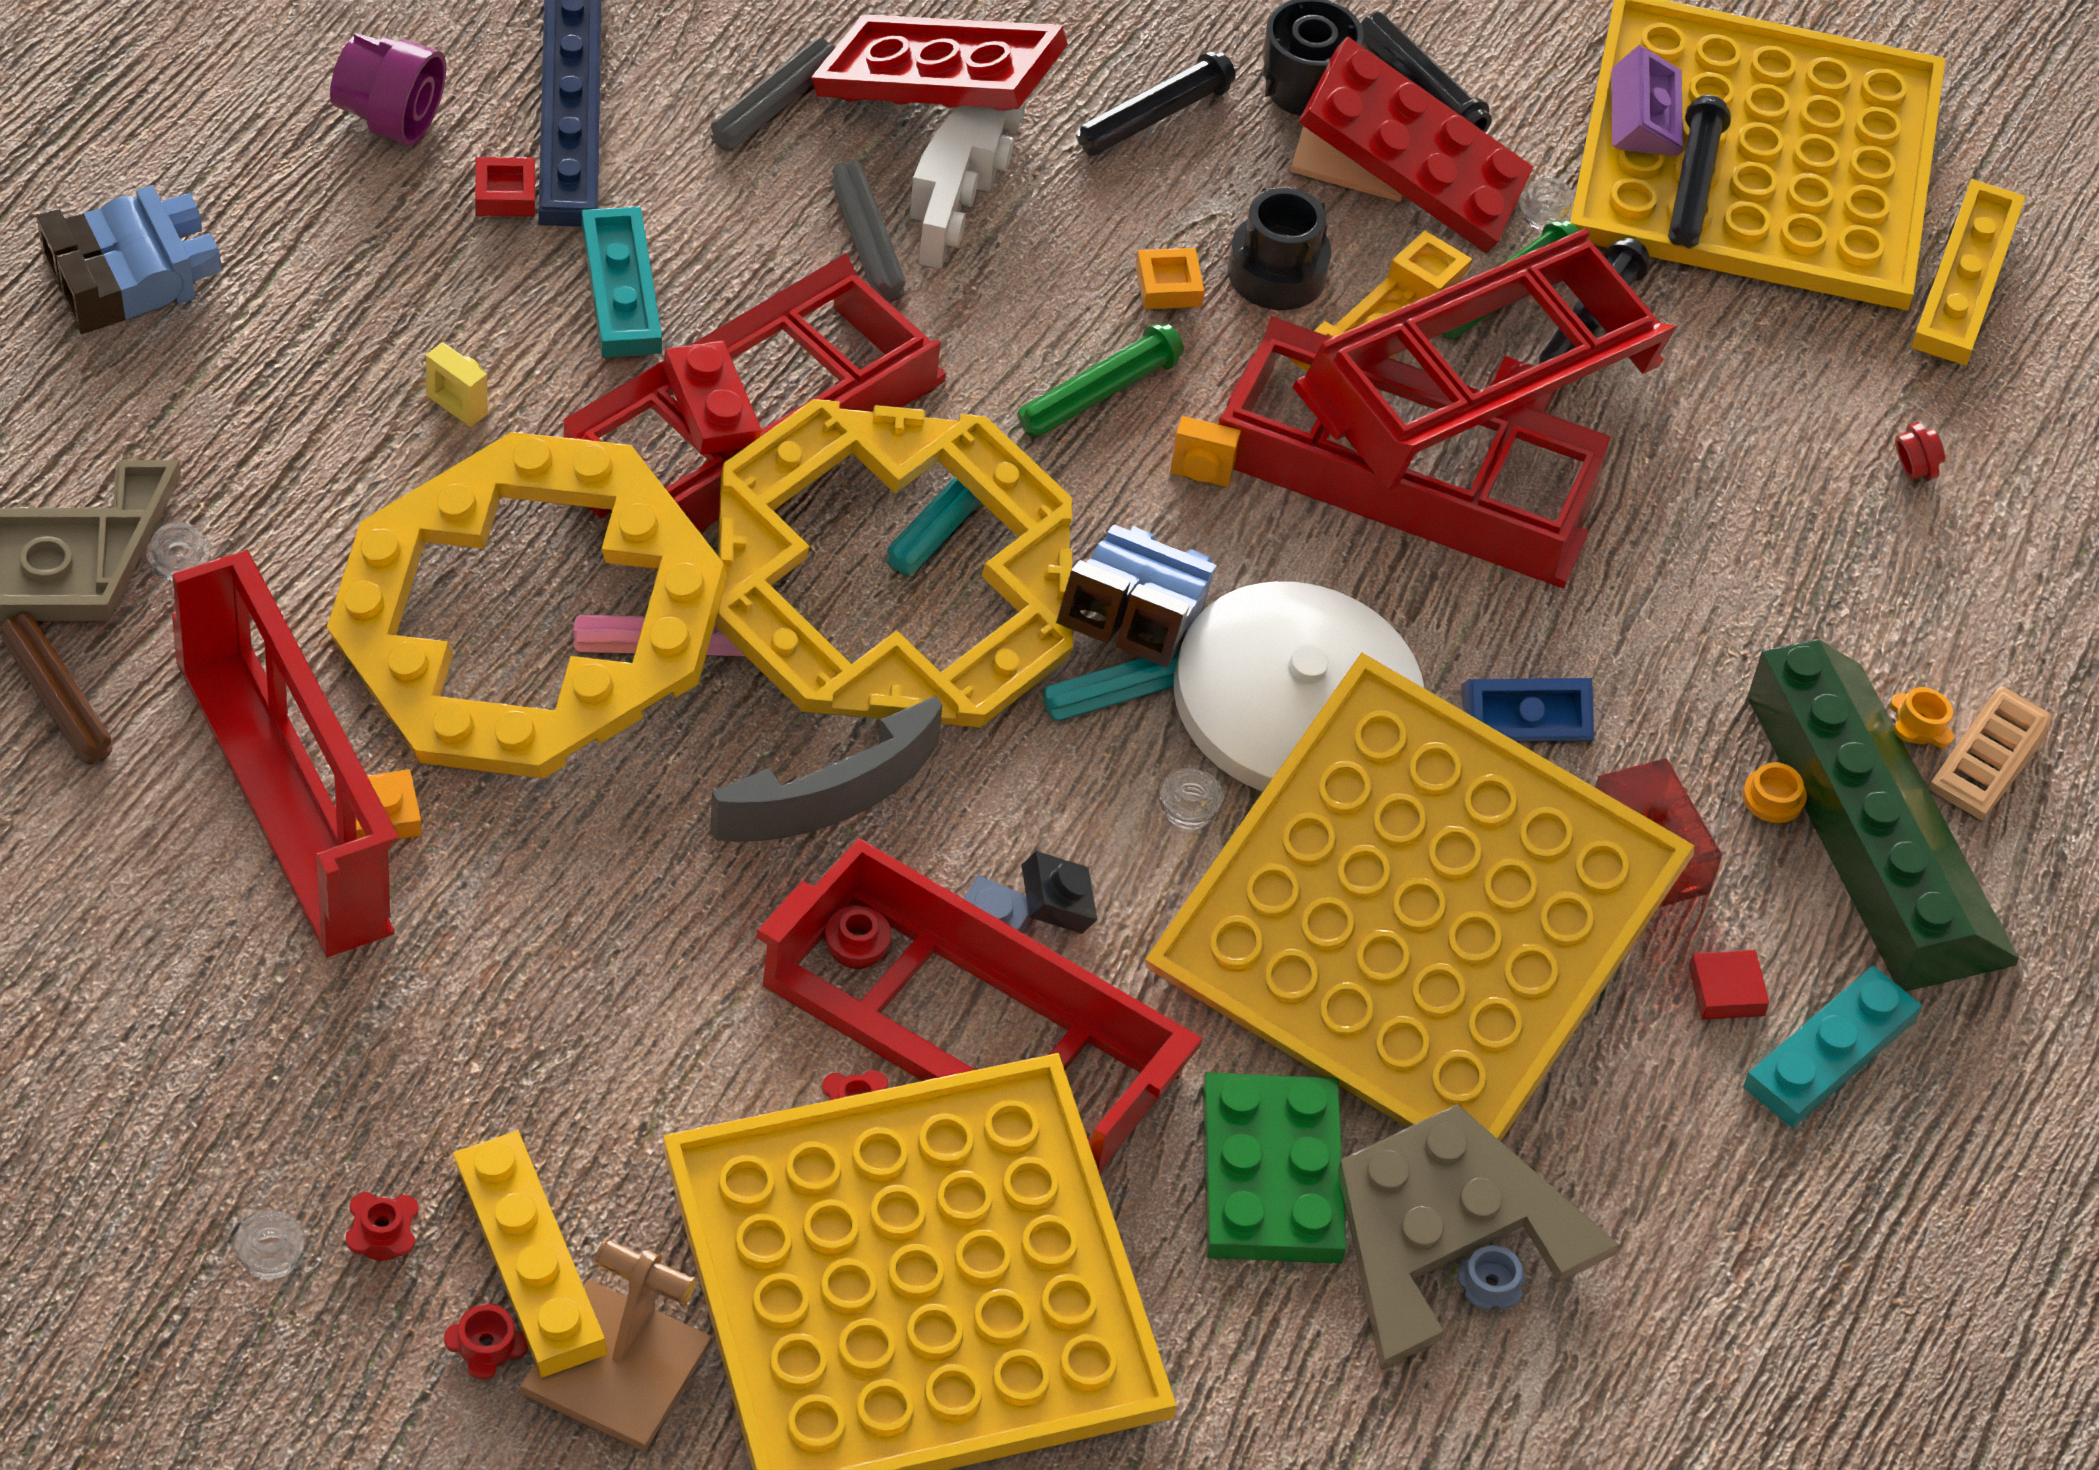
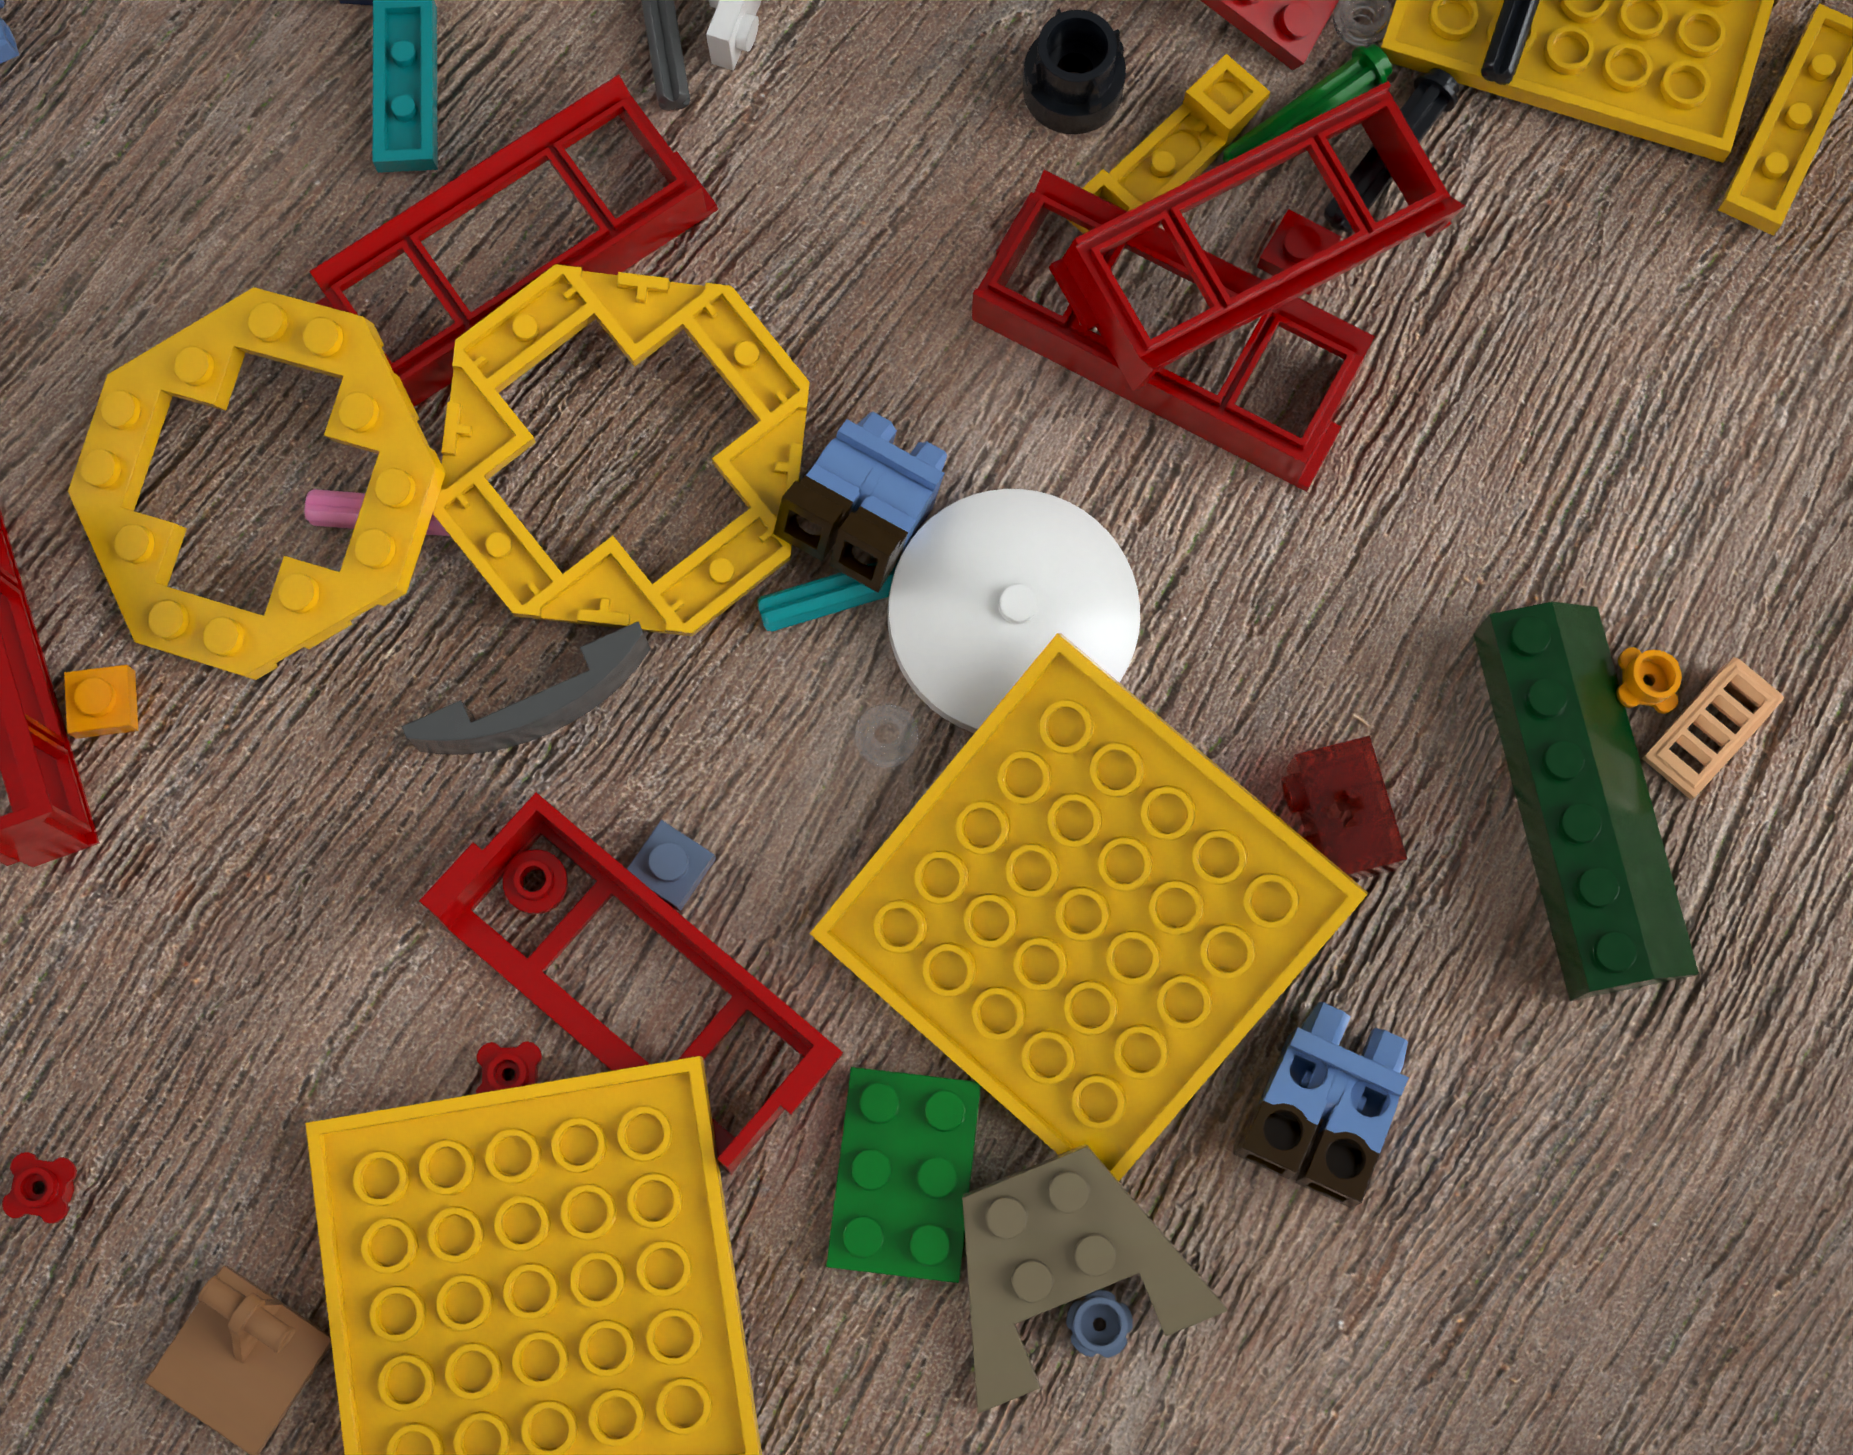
camera: 15 degrees right, 25 degrees up
(457, 384) = (228, 204): light yellow plate -> none
(485, 1322) = (103, 1323): red plate -> none
(530, 1254) = (169, 1235): yellow plate -> none
(711, 397) = (456, 253): red plate -> none
(931, 528) = (675, 395): teal axle -> none
(1059, 892) = (737, 846): black plate -> none
(1157, 348) = (870, 222): green axle -> none
(1169, 278) = (957, 99): light orange plate -> none
(1205, 451) = (959, 320): light orange plate -> none
(1533, 707) = (1244, 643): blue slope -> none
(1688, 1055) = (1329, 1083): none -> medium blue hips
(1728, 984) = (1394, 989): red tile -> none
(1775, 793) = (1479, 763): light orange plate -> none
(1832, 1046) = (1489, 1068): teal plate -> none
(1920, 452) = (1704, 349): red plate -> none

